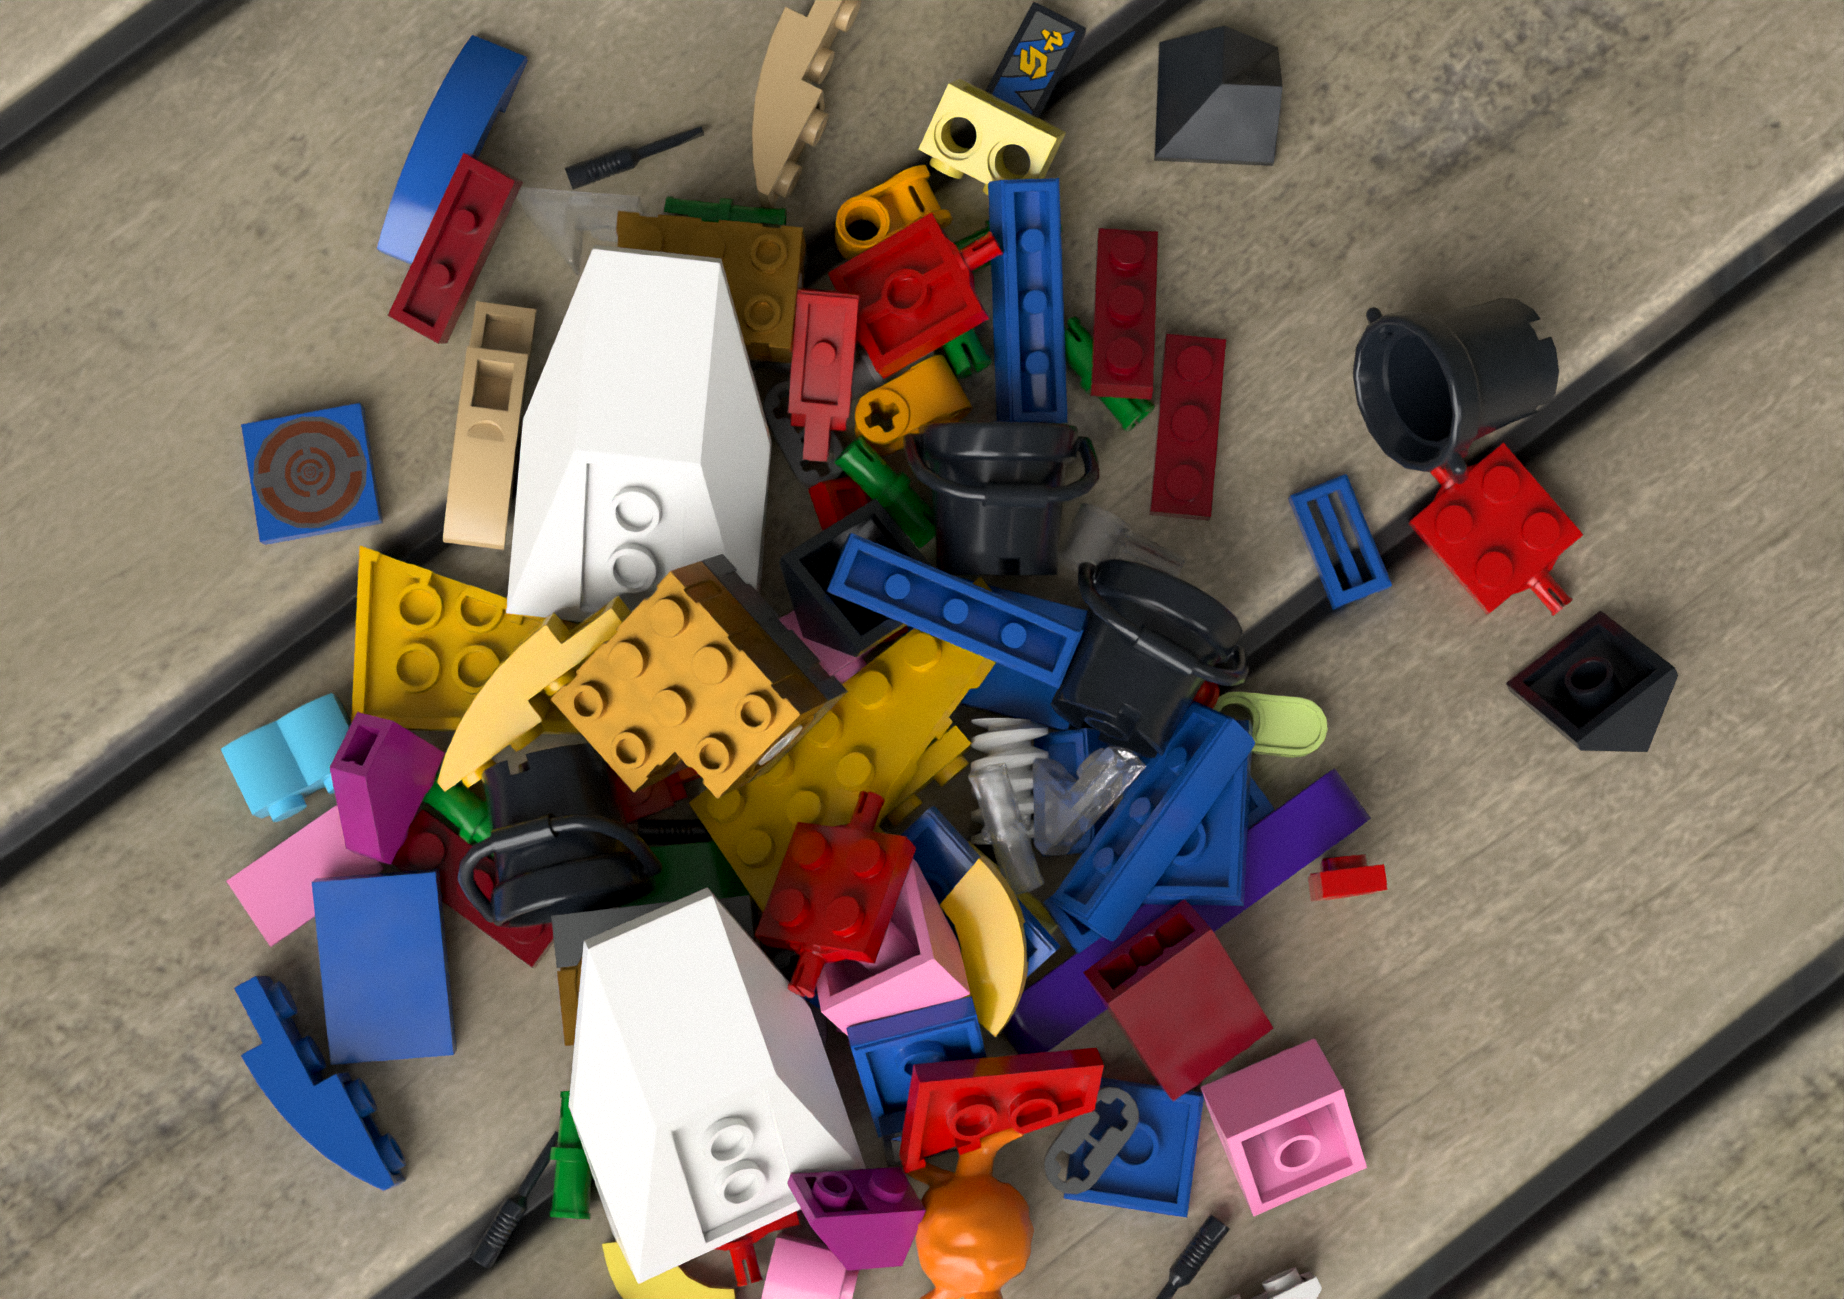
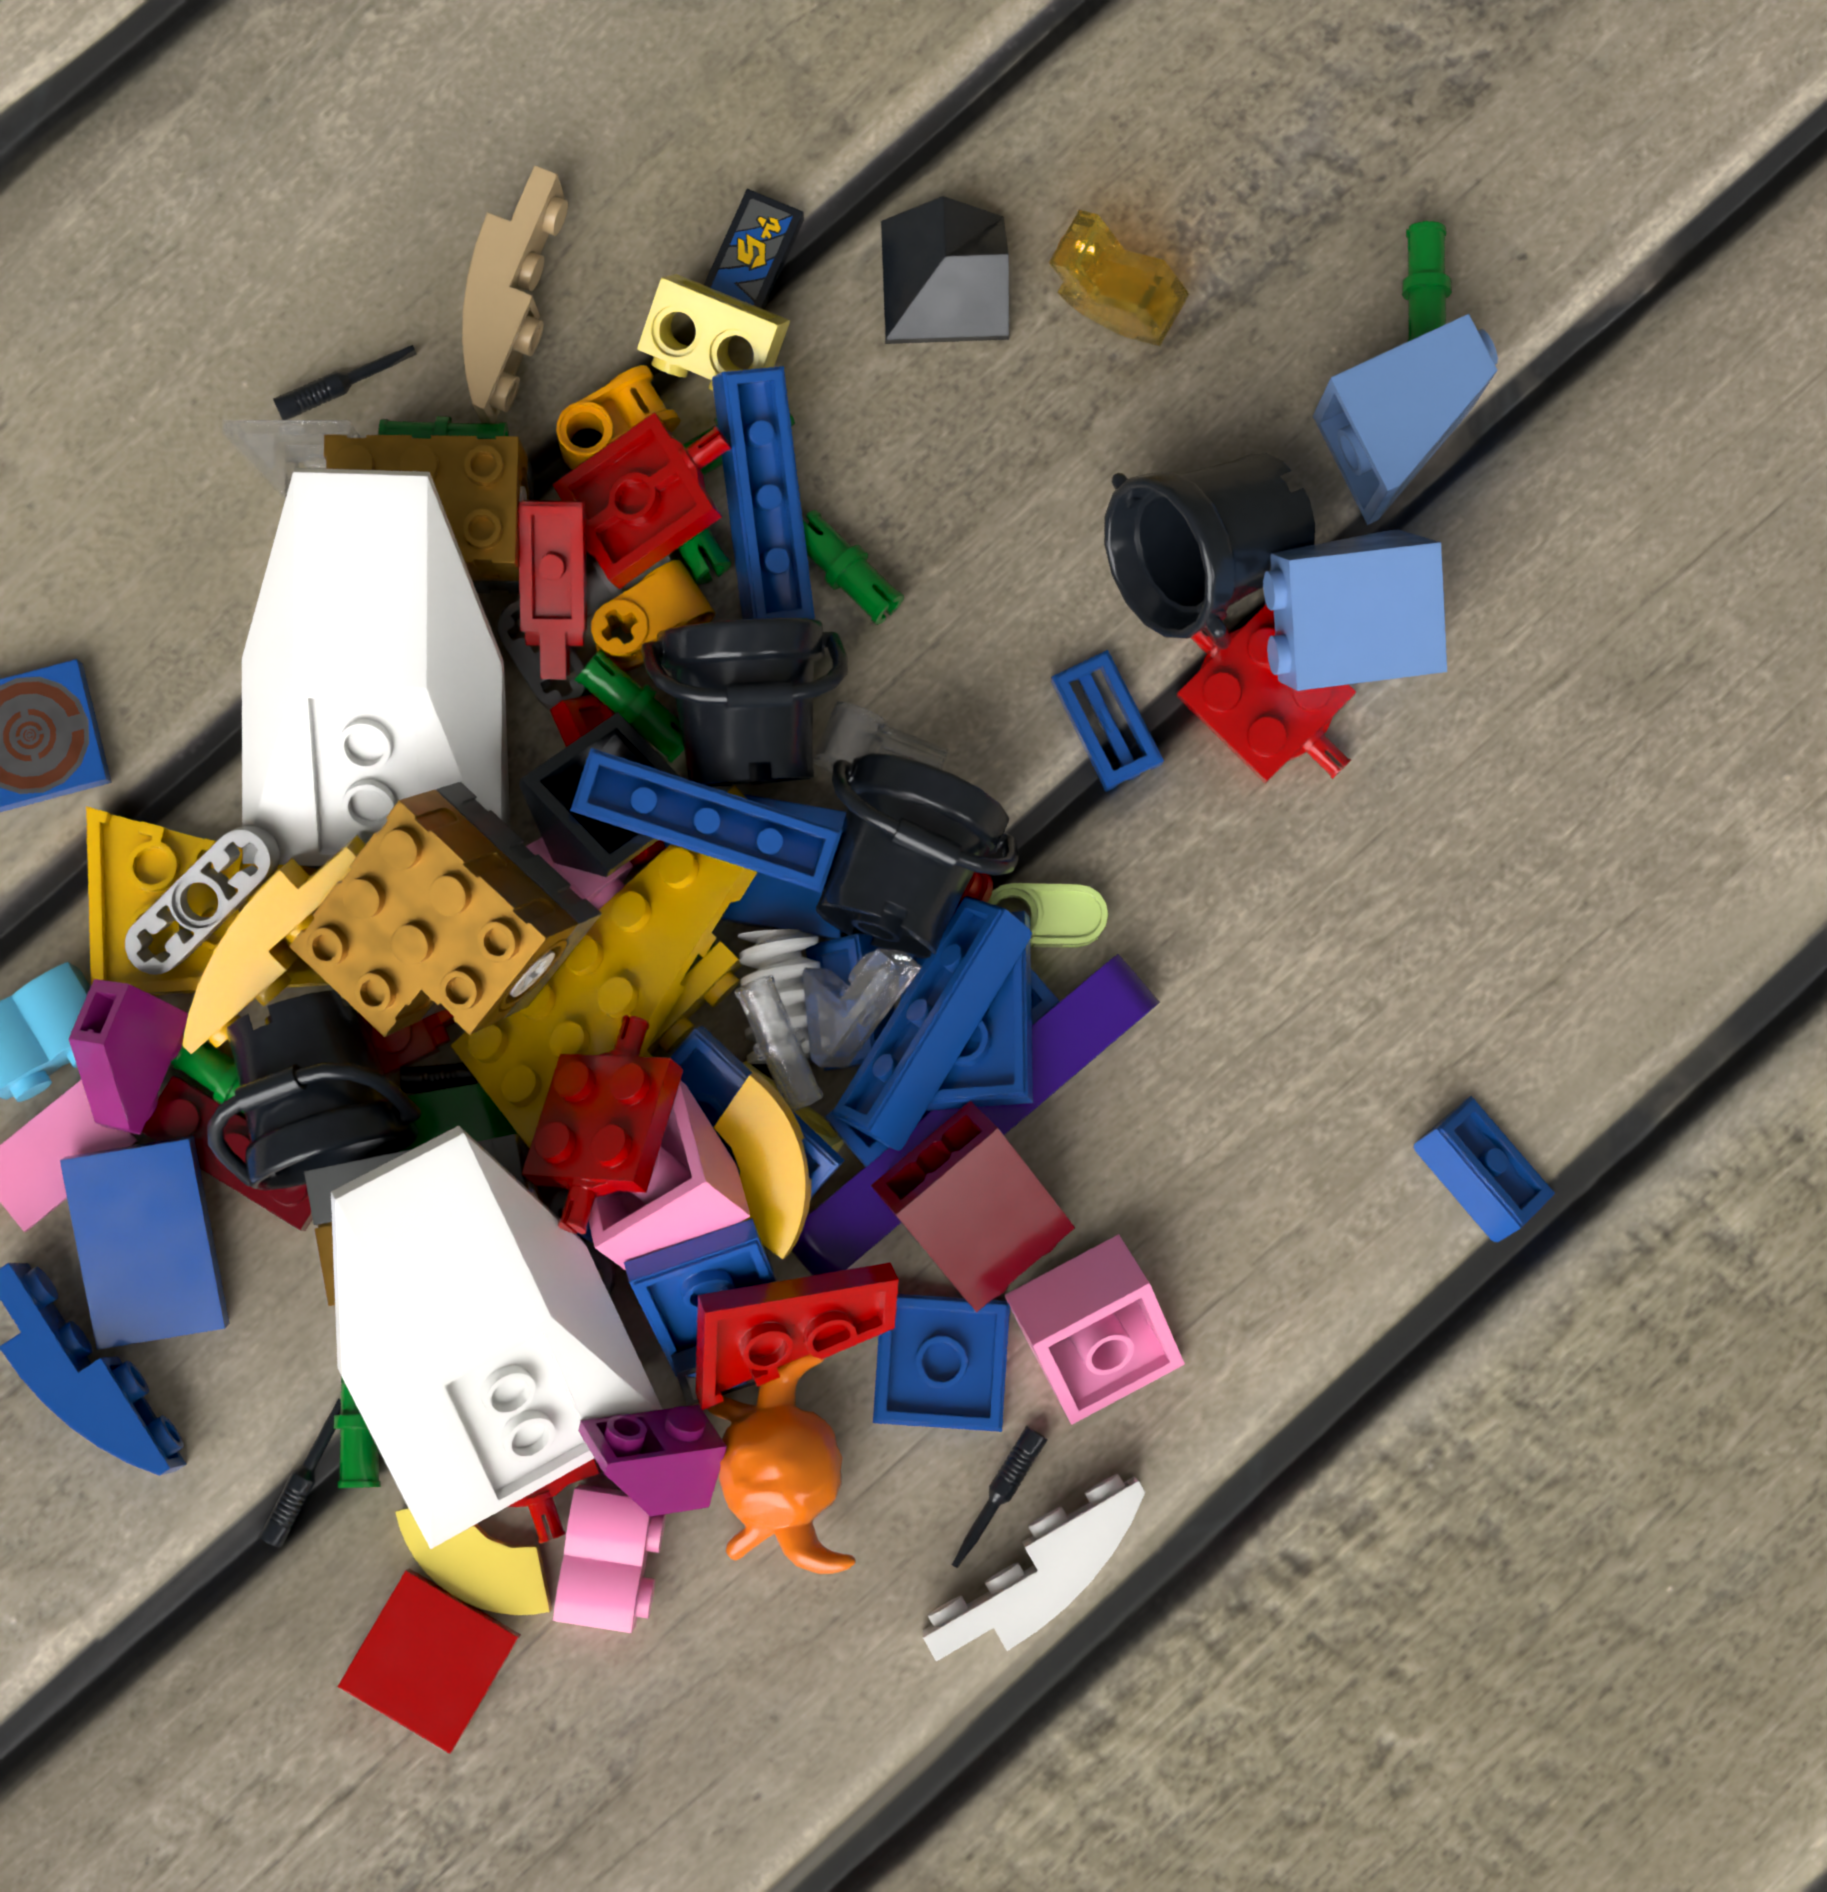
camera: 10 degrees left, 0 degrees up
(423, 658) = (158, 917): none -> light grey beam
(455, 124) = (147, 390): blue slope -> none
(455, 248) = (162, 490): dark red plate -> none
(489, 425) = (209, 671): tan slope -> none
(1103, 1149) = (908, 1369): dark grey beam -> none
(1124, 314) = (864, 502): dark red plate -> none
(1187, 427) = (940, 615): dark red plate -> none
(1346, 878) = (1136, 1065): red hinge -> none
(1381, 123) = (1116, 286): none -> clear yellow brick
(1593, 458) = (1357, 610): none -> medium blue slope
(1599, 688) = (1384, 848): black slope -> none
(1648, 265) = (1401, 408): none -> medium blue slope
(1669, 1006) = (1483, 1170): none -> blue slope
(1681, 148) = (1426, 281): none -> green pin

